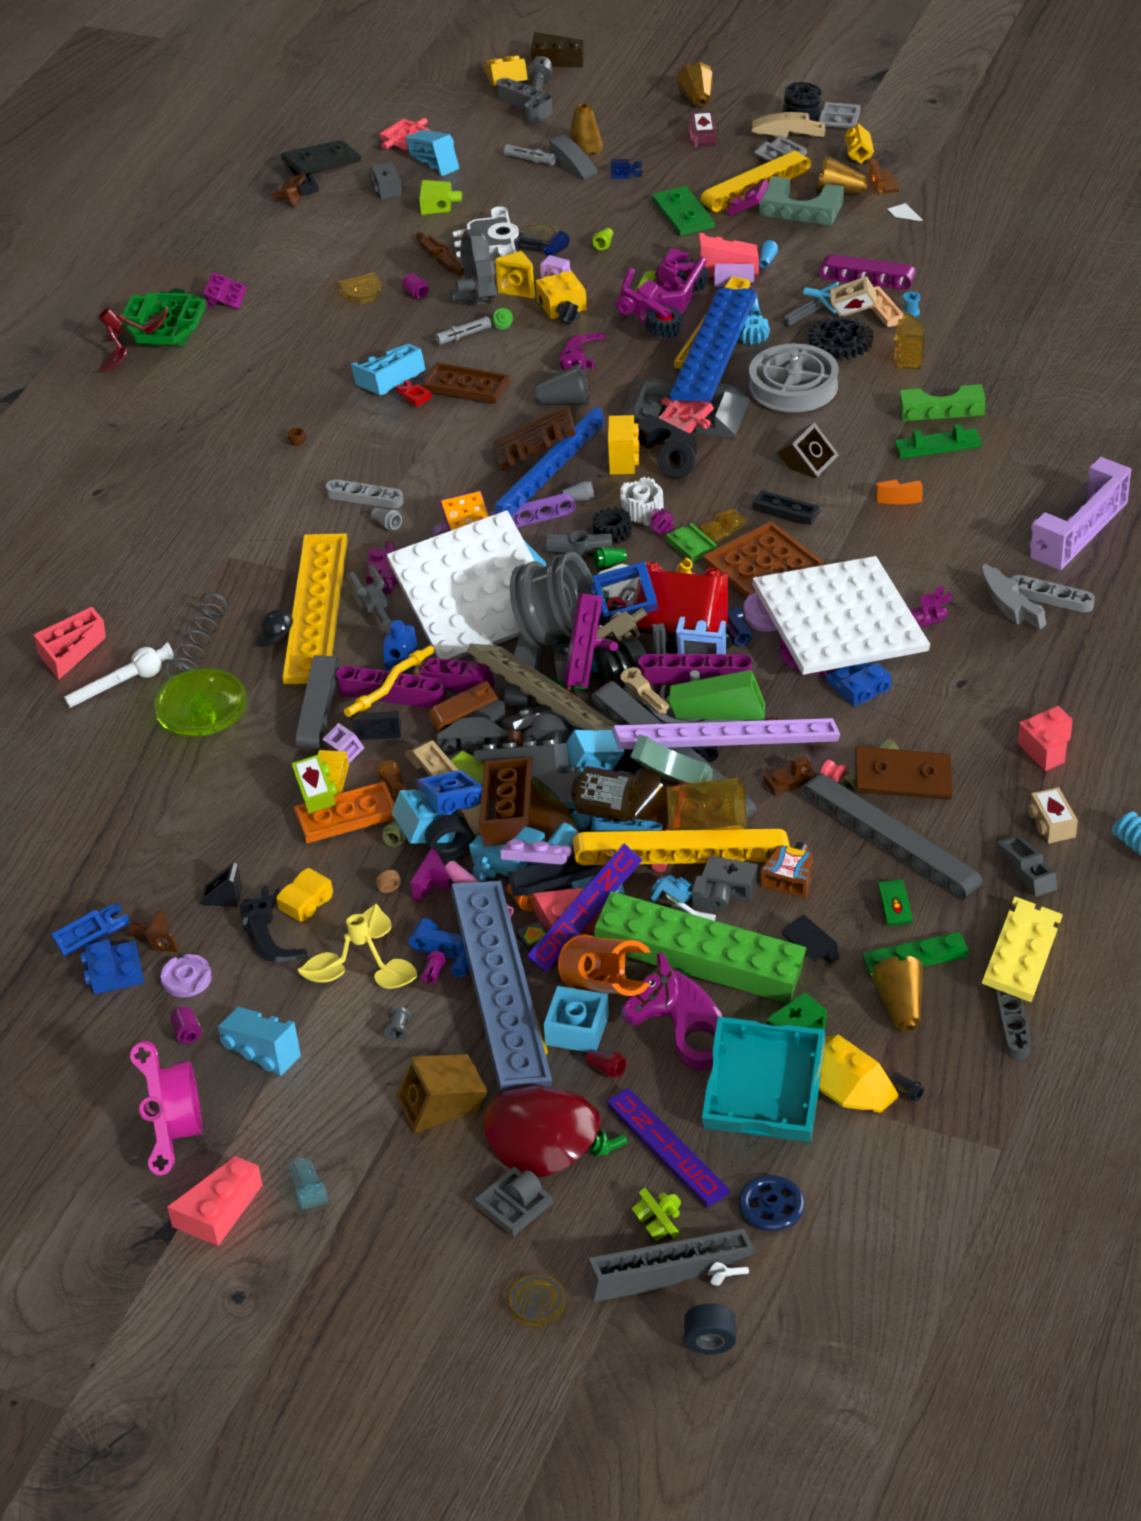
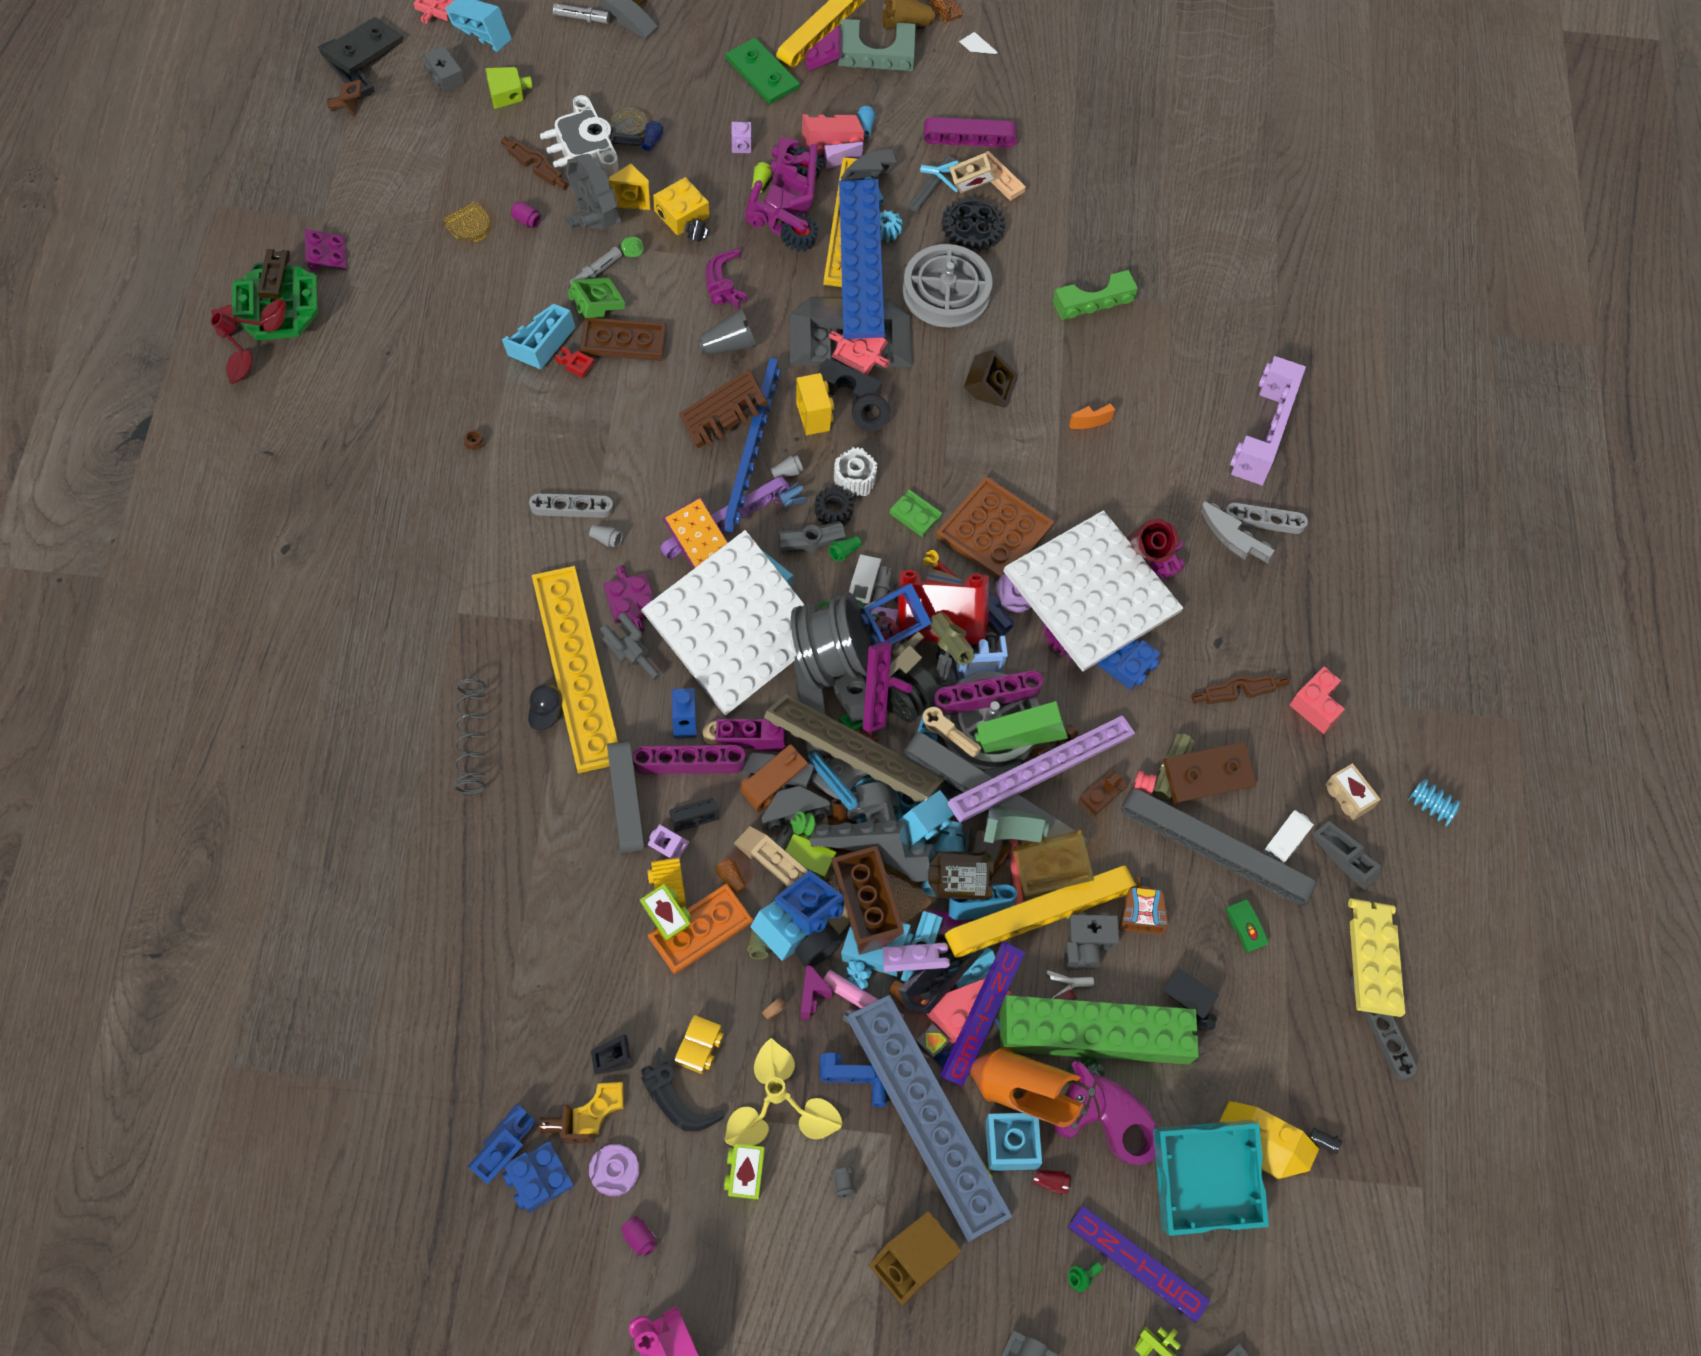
camera: 25 degrees left, 20 degrees up
(69, 641) = (337, 767): coral wedge -> none
(144, 662) = (427, 779): white piece -> none
(169, 294) = (273, 274): none -> dark brown plate
(201, 702) = (504, 803): clear neon green dish -> none
(201, 923) = (590, 1116): none -> yellow tile
(261, 1039) = (719, 1239): medium azure wedge -> none
(306, 993) = (745, 1171): none -> brick
(364, 702) = (679, 796): yellow bar -> none
(435, 961) = (853, 1104): magenta pin -> none
(449, 347) = (595, 296): none -> bright green plate
(473, 743) = (803, 823): none -> bright green wheel
(515, 712) = (833, 780): none -> dark azure axle
(540, 1128) = (1023, 1276): dark red piece -> none
(553, 266) = (663, 172): lavender brick -> none
(568, 516) = (785, 498): none -> flat silver piece
(602, 239) = (696, 122): lime cone -> none
(622, 168) = (685, 22): clear blue plate -> none
(640, 252) = (741, 137): none -> lavender brick
(661, 521) = (881, 494): magenta gear -> none
(670, 613) = (952, 639): none -> olive piece
(677, 888) = (1049, 962): dark azure bracket -> none
(725, 525) = (939, 485): clear yellow slope -> none
(761, 280) = (870, 165): none -> dark grey slope
(780, 1220) = (1270, 1296): dark blue plate -> none
(786, 507) = (992, 453): black plate -> none
(800, 1012) = (1218, 1083): green brick -> none
(816, 968) = (1209, 1022): none -> black plant
(900, 990) = (1291, 1039): pearl gold cone -> none
(910, 342) = (1045, 224): clear yellow slope -> none
(911, 303) = (1027, 166): dark azure bush -> none
(914, 577) = (1154, 540): none -> dark red cone
(928, 951) = (1281, 982): green plate -> none
(937, 443) = (1104, 345): green hinge -> none
(961, 828) = (1288, 837): none -> white slope
(980, 720) = (1228, 691): none -> reddish brown piece

